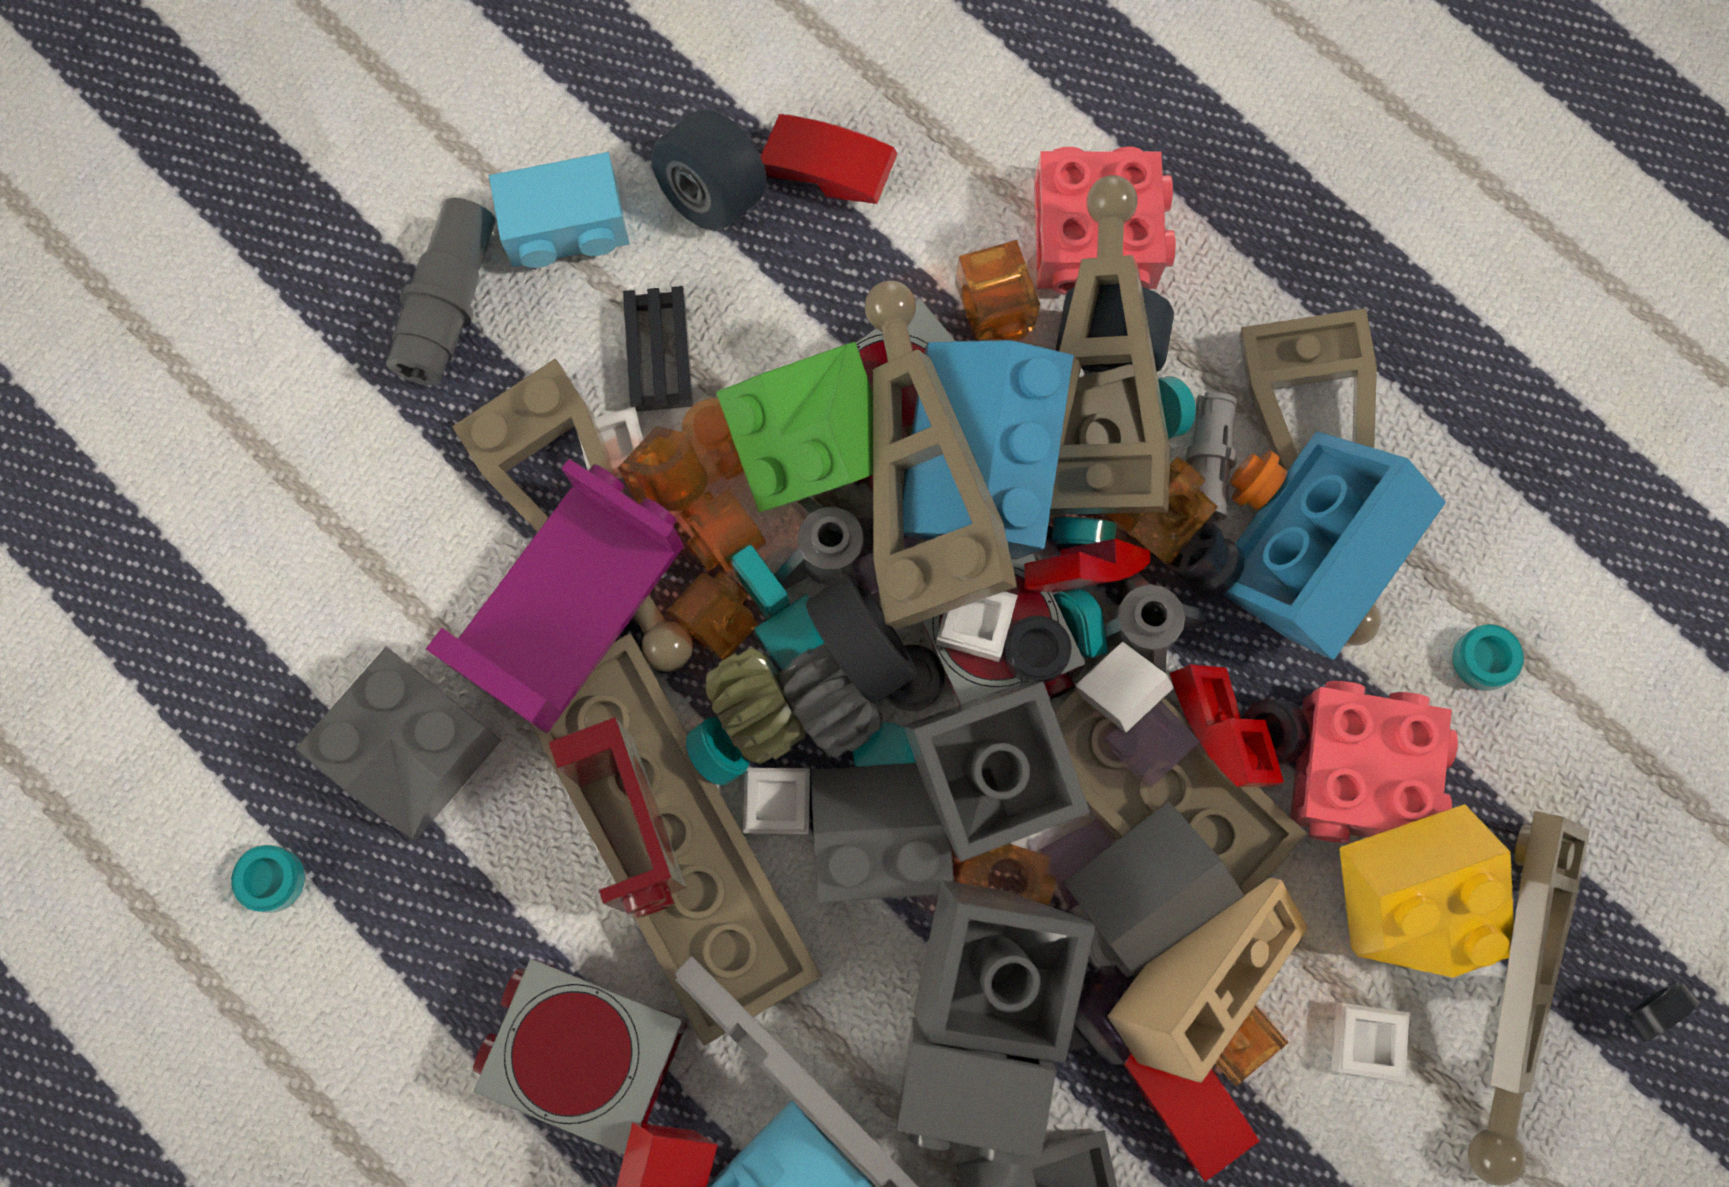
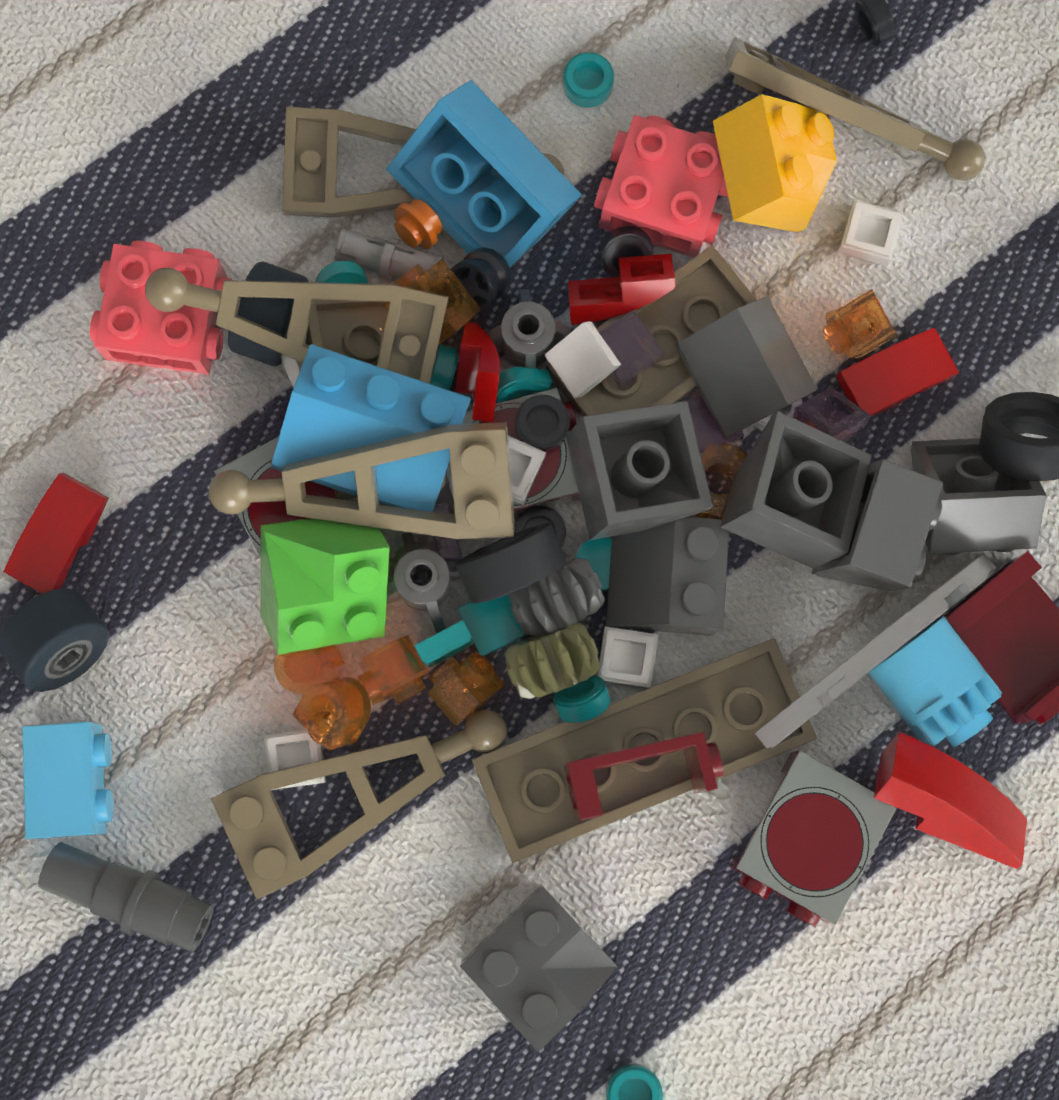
camera: 85 degrees left, 5 degrees up
(564, 598) = (435, 811): magenta panel -> none
(654, 303) = (165, 706): black tile -> none
(997, 293) = (216, 406): clear orange brick -> none
(1206, 984) = (824, 342): tan slope -> none

